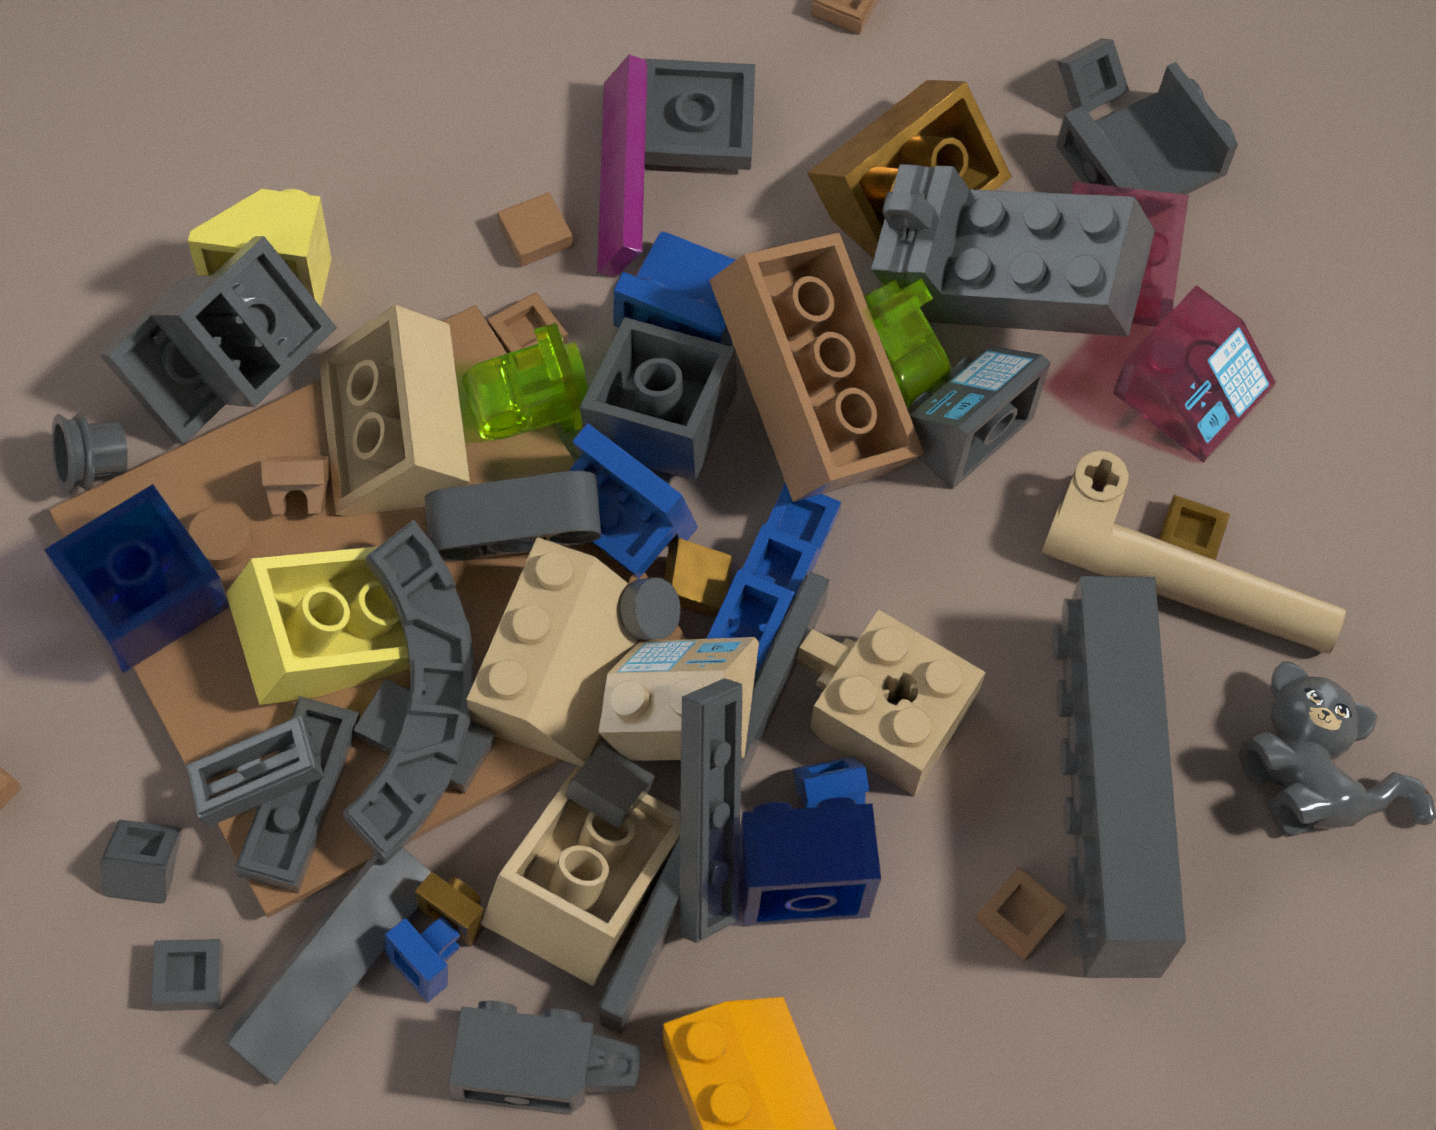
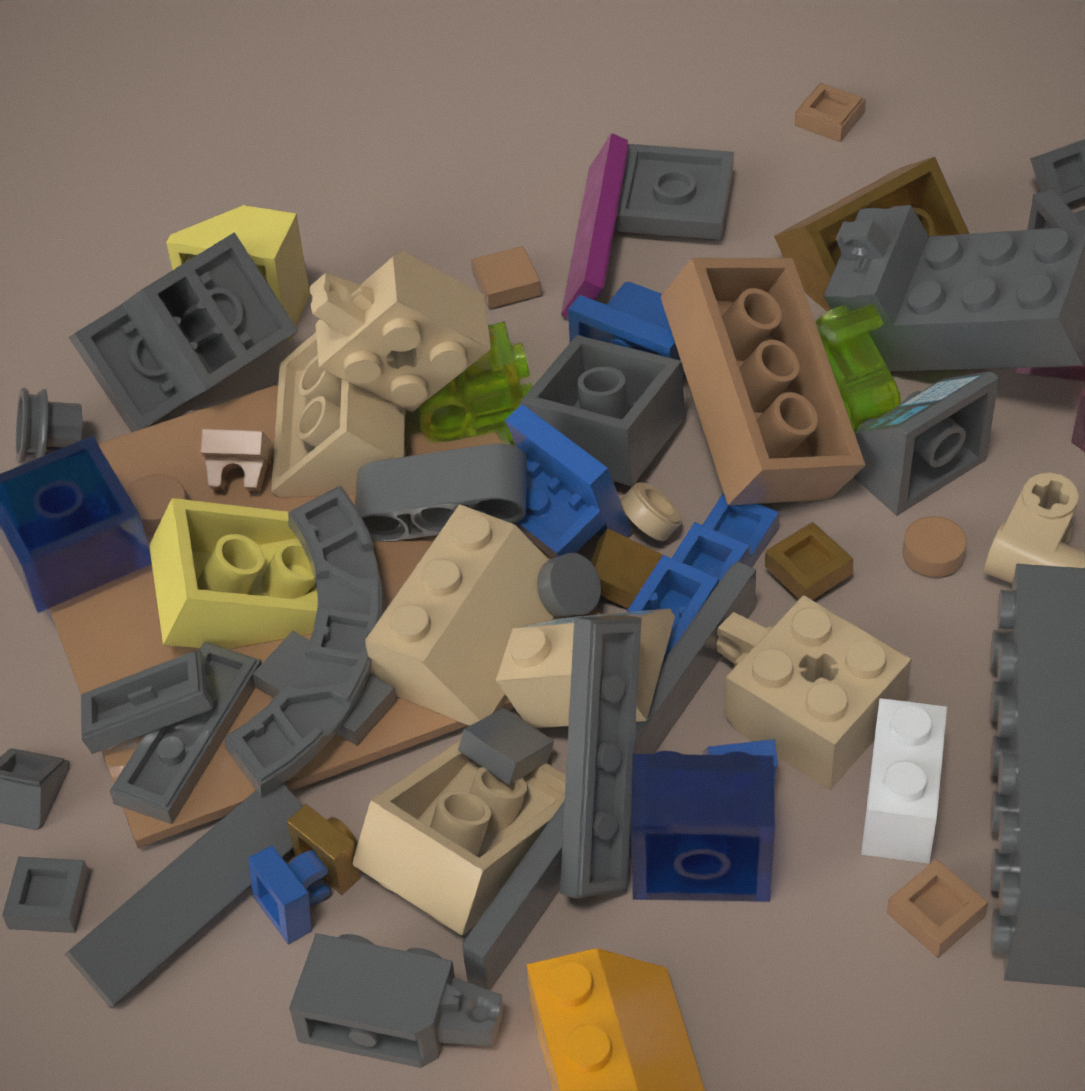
camera: 15 degrees right, 15 degrees down
(458, 351) = (399, 329): none -> tan hinge
(717, 509) = (651, 511): none -> tan tile
(875, 556) = (809, 562): none -> pearl gold plate
(985, 791) = (904, 781): none -> white brick
(991, 526) = (934, 546): none -> medium nougat tile

